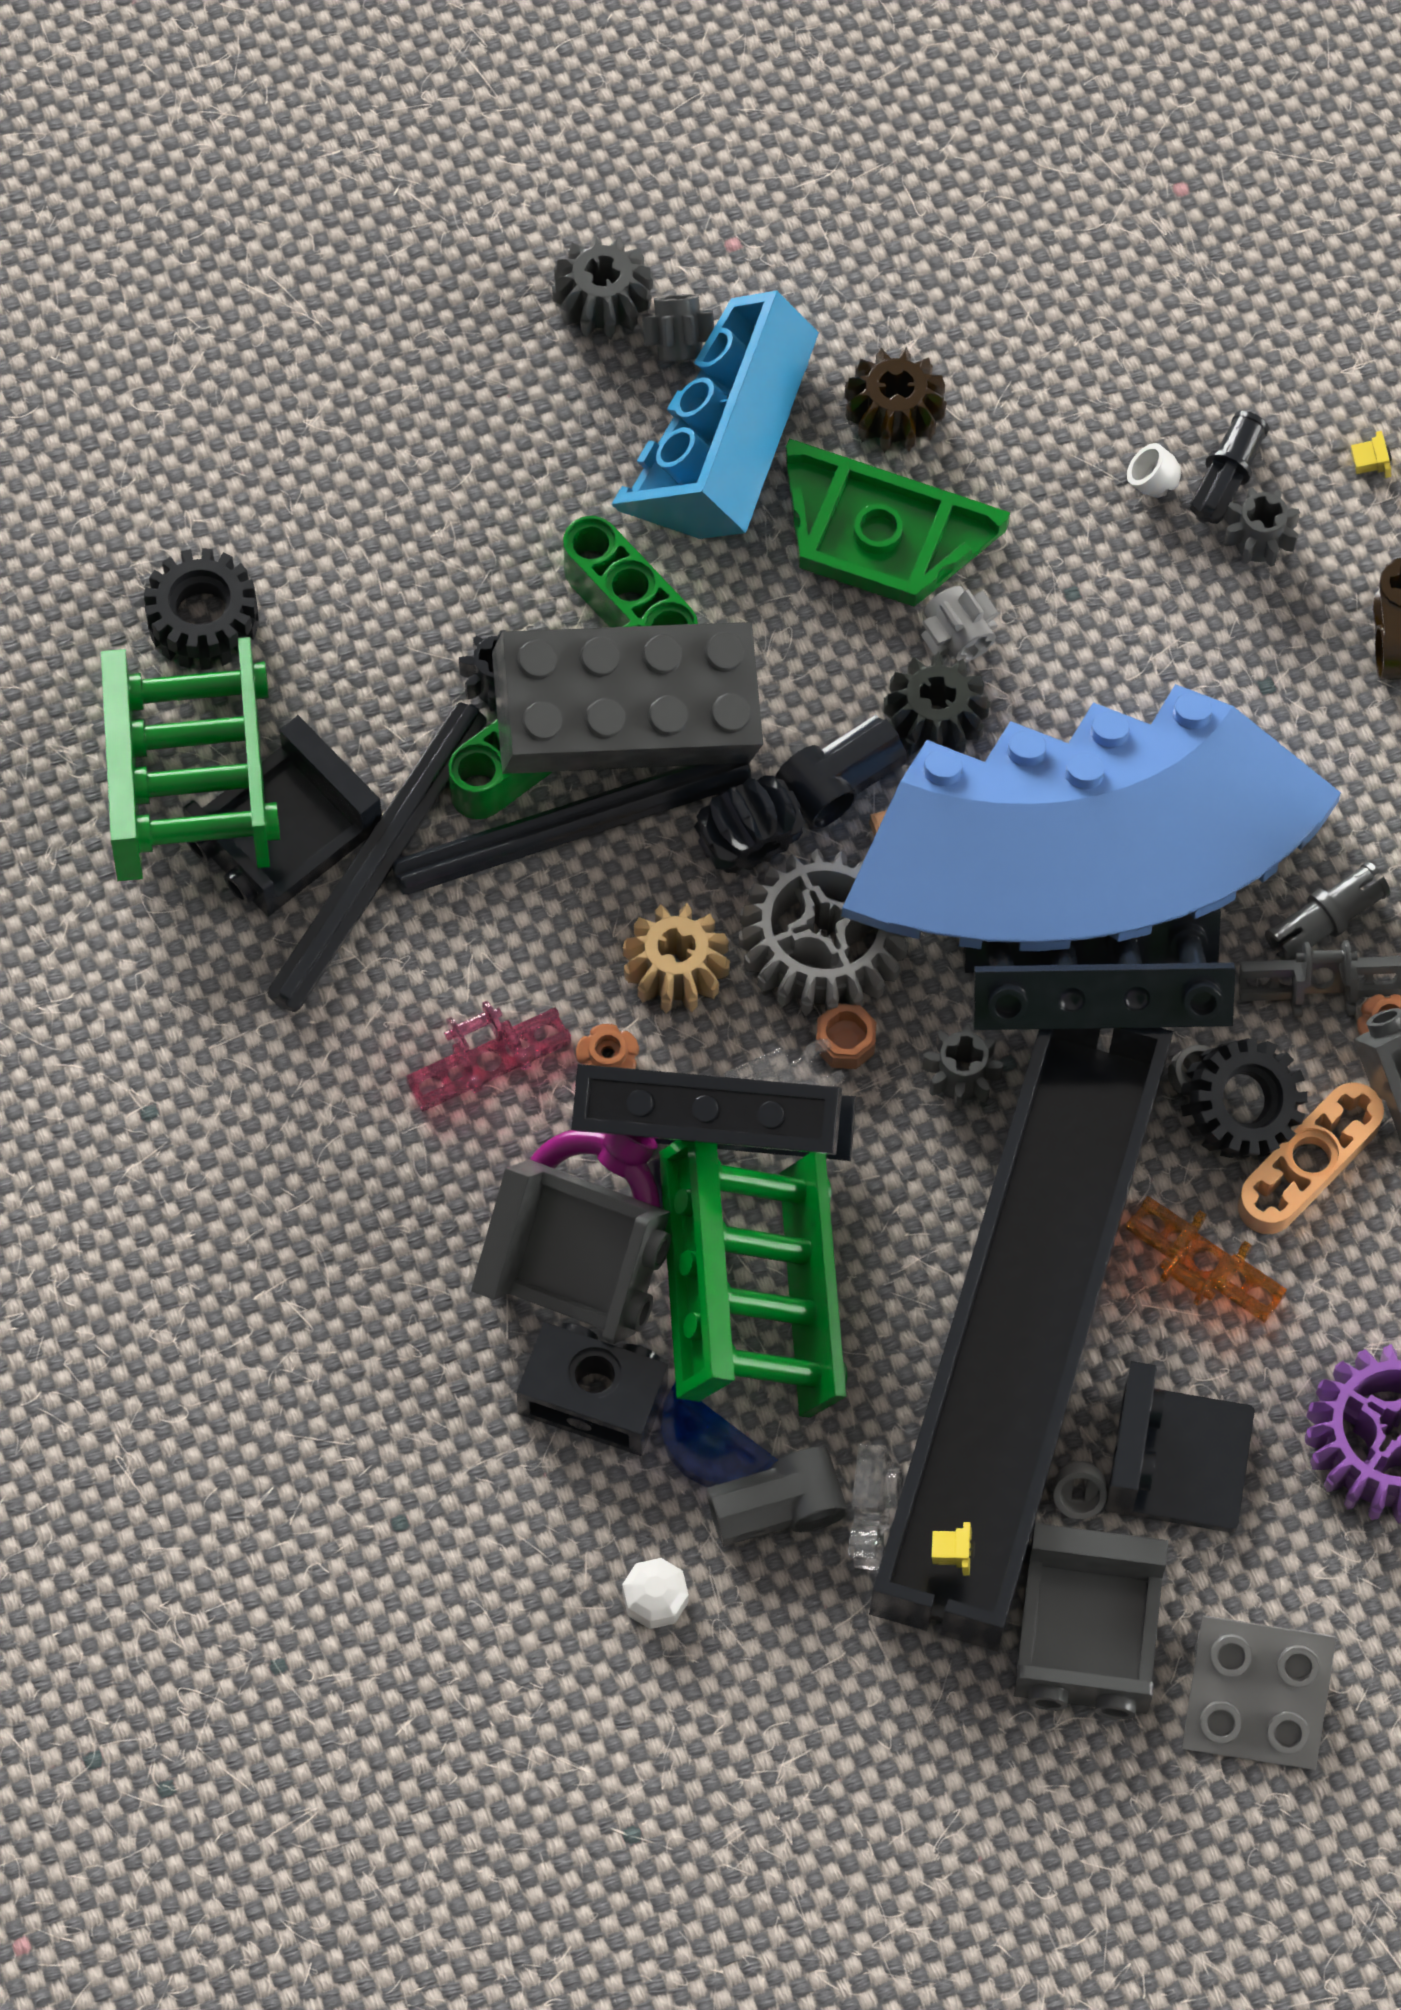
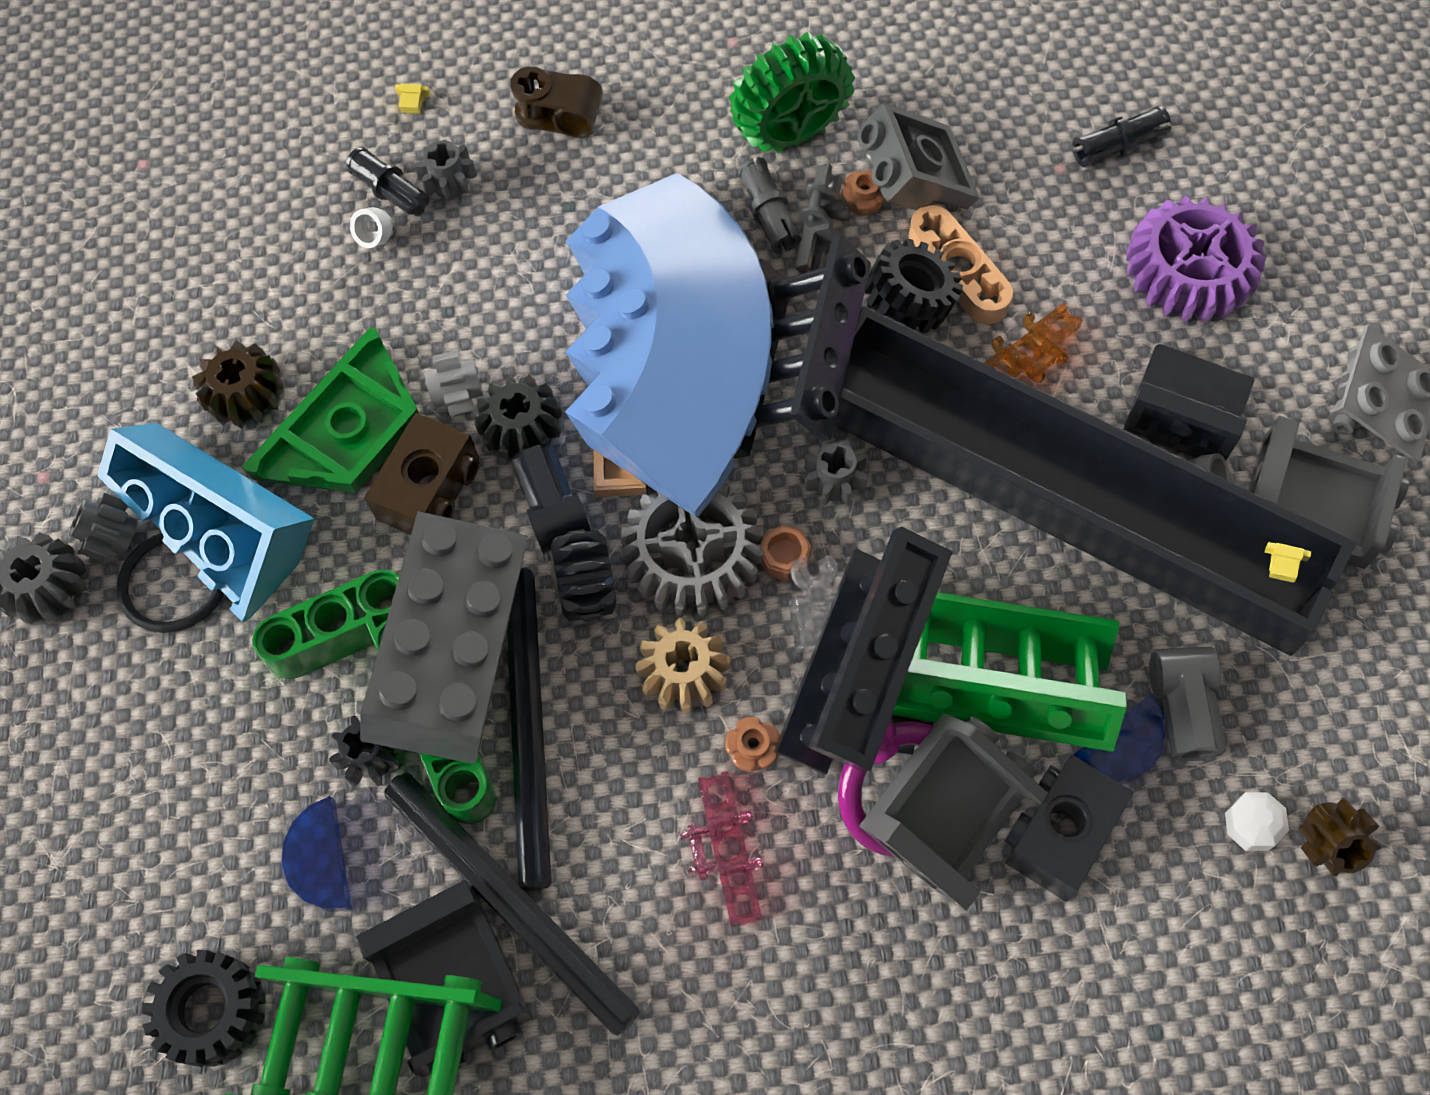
camera: 70 degrees left, 0 degrees up
(376, 661) = (315, 858): none -> clear blue tile
(599, 388) = (146, 623): none -> black tyre
(652, 1669) = (1339, 837): none -> dark brown gear
(809, 605) = (422, 451): none -> dark brown brick
(874, 1494) = (1197, 622): clear plate -> none

